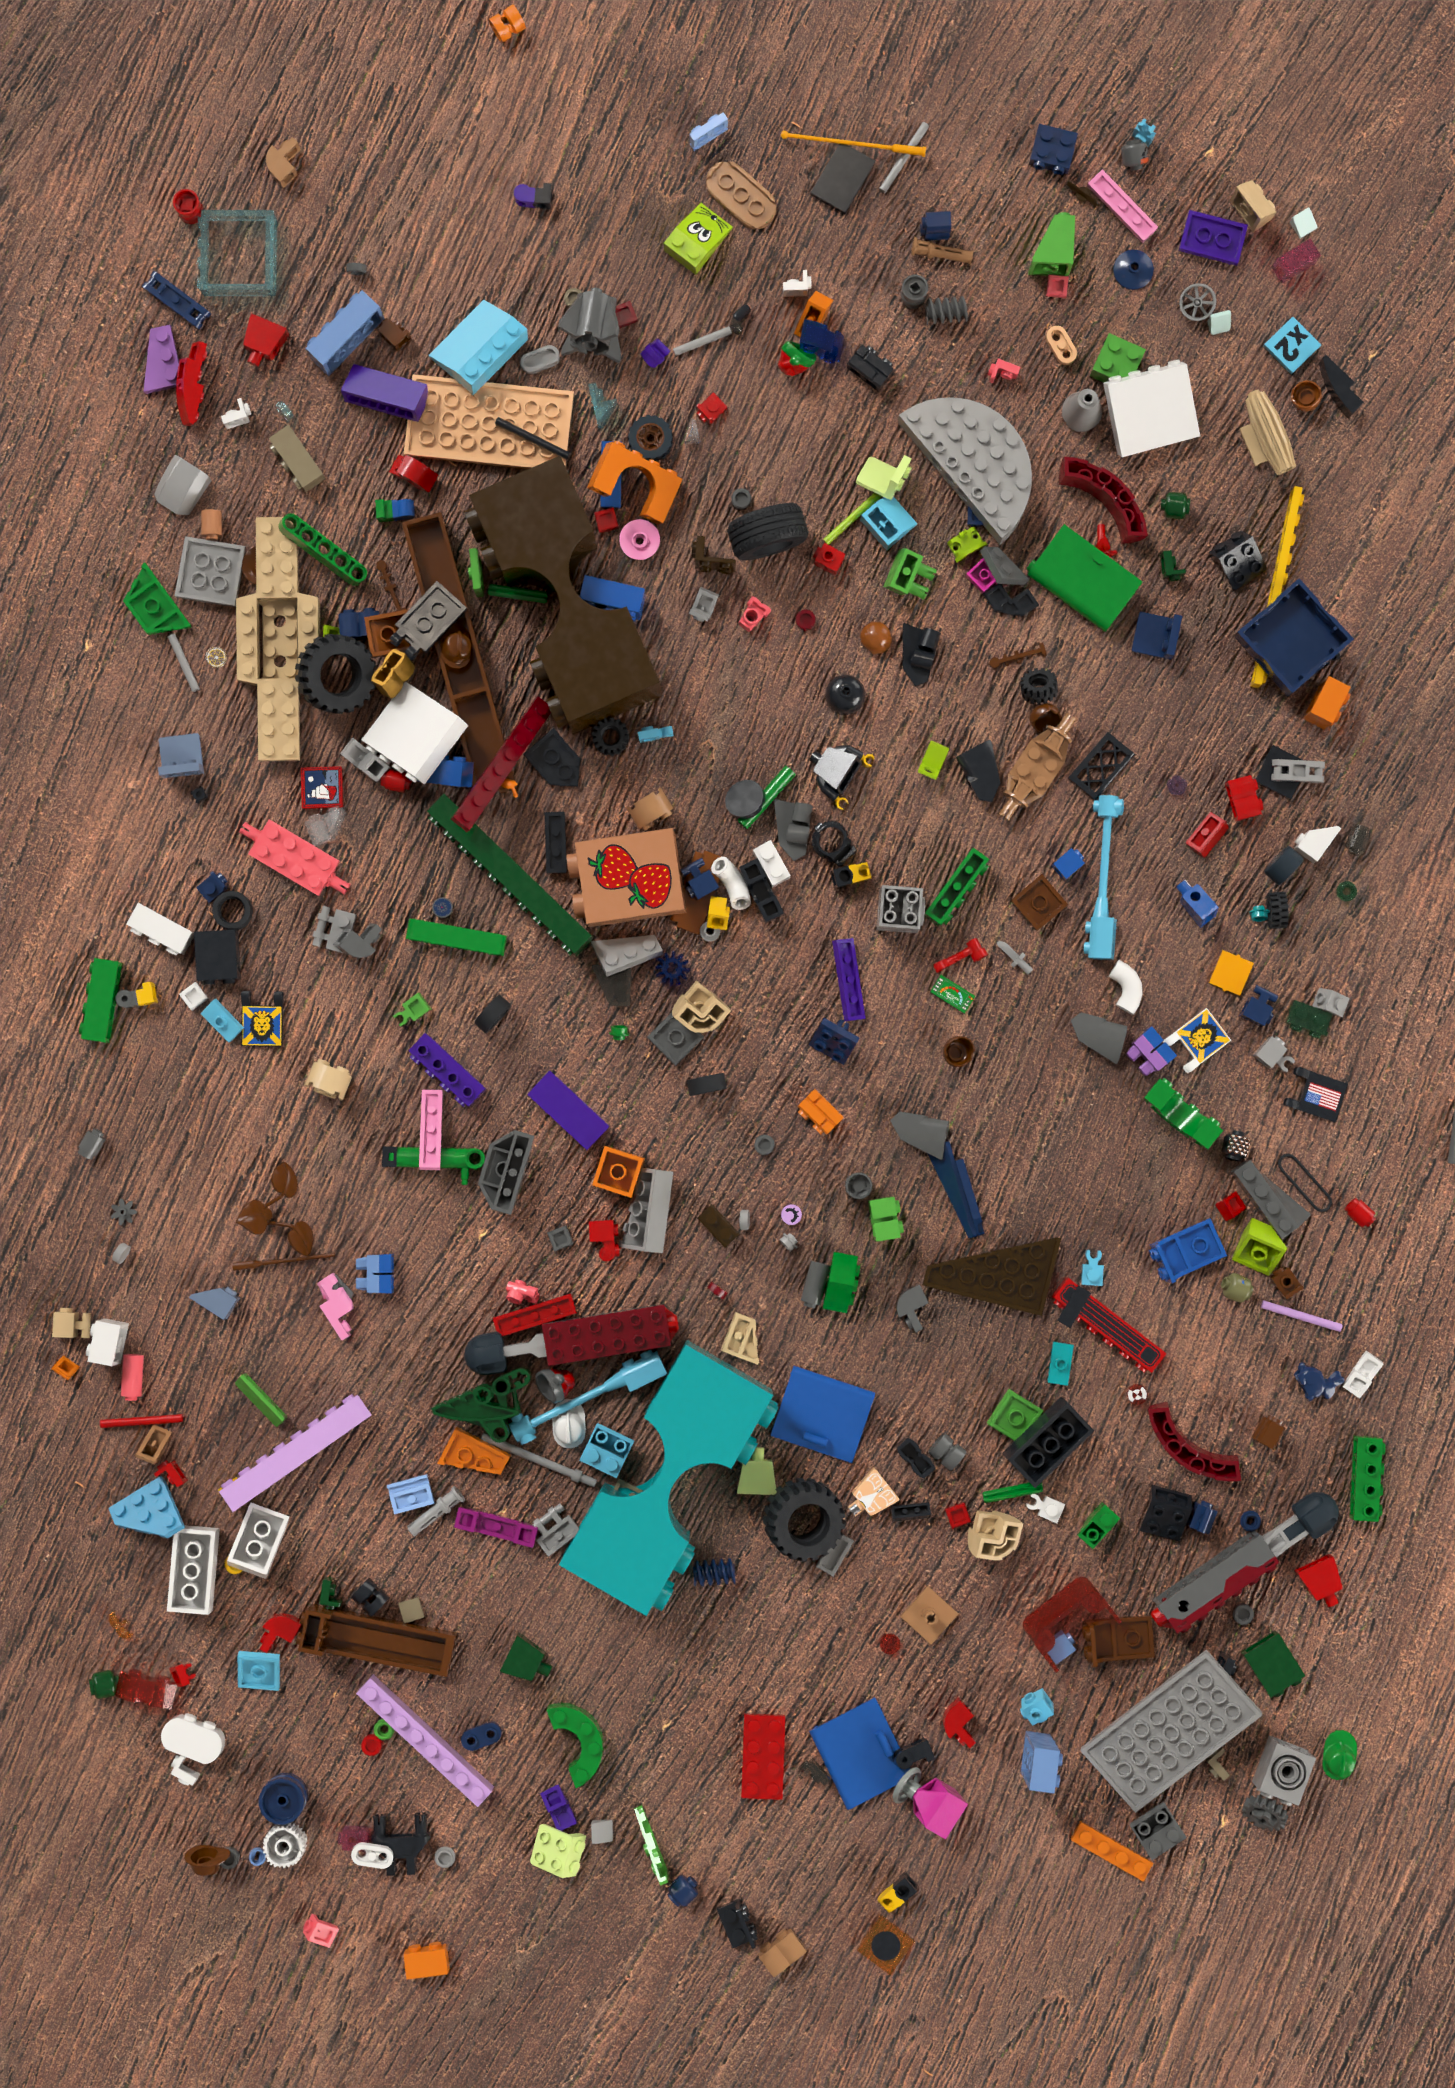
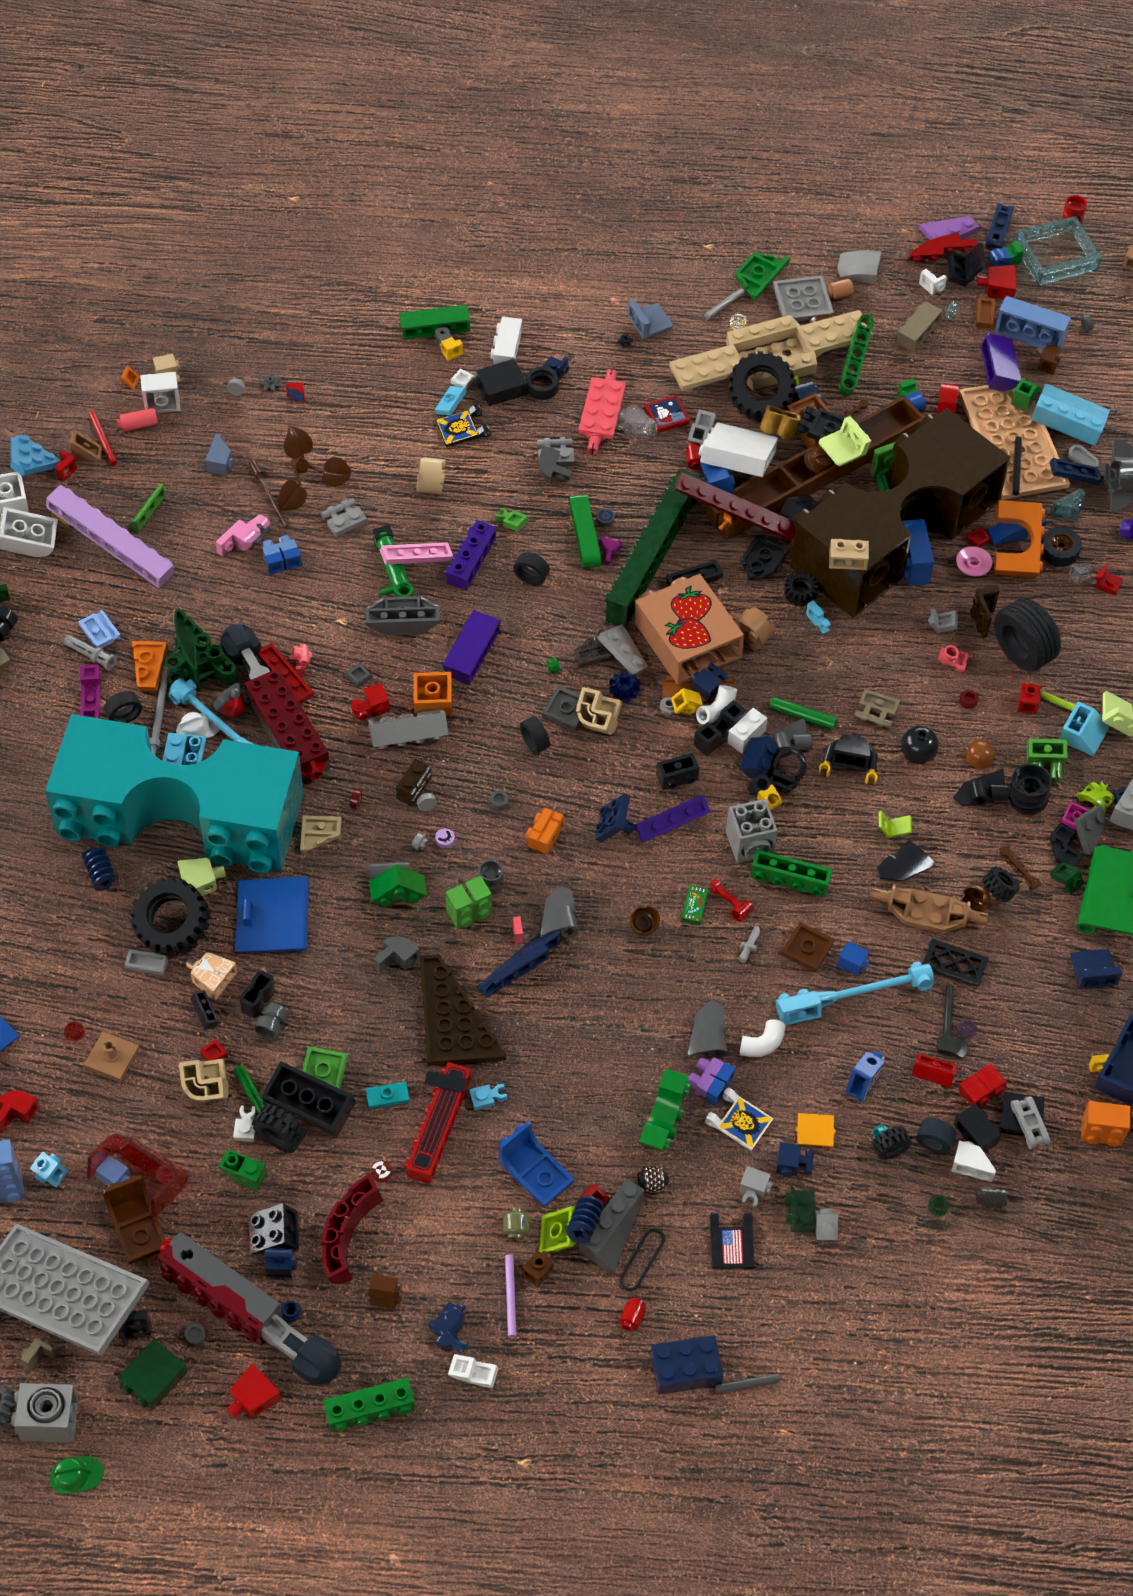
camera: 70 degrees right, 30 degrees down
(91, 1143) = (317, 346): dark grey brick -> none
(151, 1187) = (295, 391): none -> slope
(226, 313) = (1007, 256): none -> leg
(229, 367) = (964, 269): none -> black bracket
(298, 374) = (985, 312): none -> dark orange tile
(351, 1188) = (346, 521): none -> light grey plate
(441, 384) = (1025, 394): none -> green slope
(459, 619) = (846, 443): none -> yellowish green bracket
(485, 917) = (610, 547): none -> magenta rock
(513, 696) = (796, 504): none -> black brick
(527, 1497) = (119, 700): none -> black tyre
(562, 379) = (1075, 471): none -> dark blue plate
(636, 685) = (848, 554): none -> tan brick
(745, 799) = (793, 694): black tile -> none
(782, 715) = (879, 704): none -> dark tan plate
(799, 954) = (677, 771): none -> black brick
(809, 865) = (758, 756): none -> dark blue brick
(925, 1179) = (517, 930): none -> coral tile
(942, 597) = (1030, 789): none -> black wheel
(1047, 615) = (1068, 876): none -> dark green bracket
(1073, 1480) = (279, 1128): none -> black tyre
(1190, 803) = (946, 1044): none -> pearl dark grey piece
(1268, 1228) = (584, 1219): none -> dark blue piece
(1286, 822) = (977, 1128): none -> black brick
(1425, 1182) = (686, 1364): none -> dark blue brick

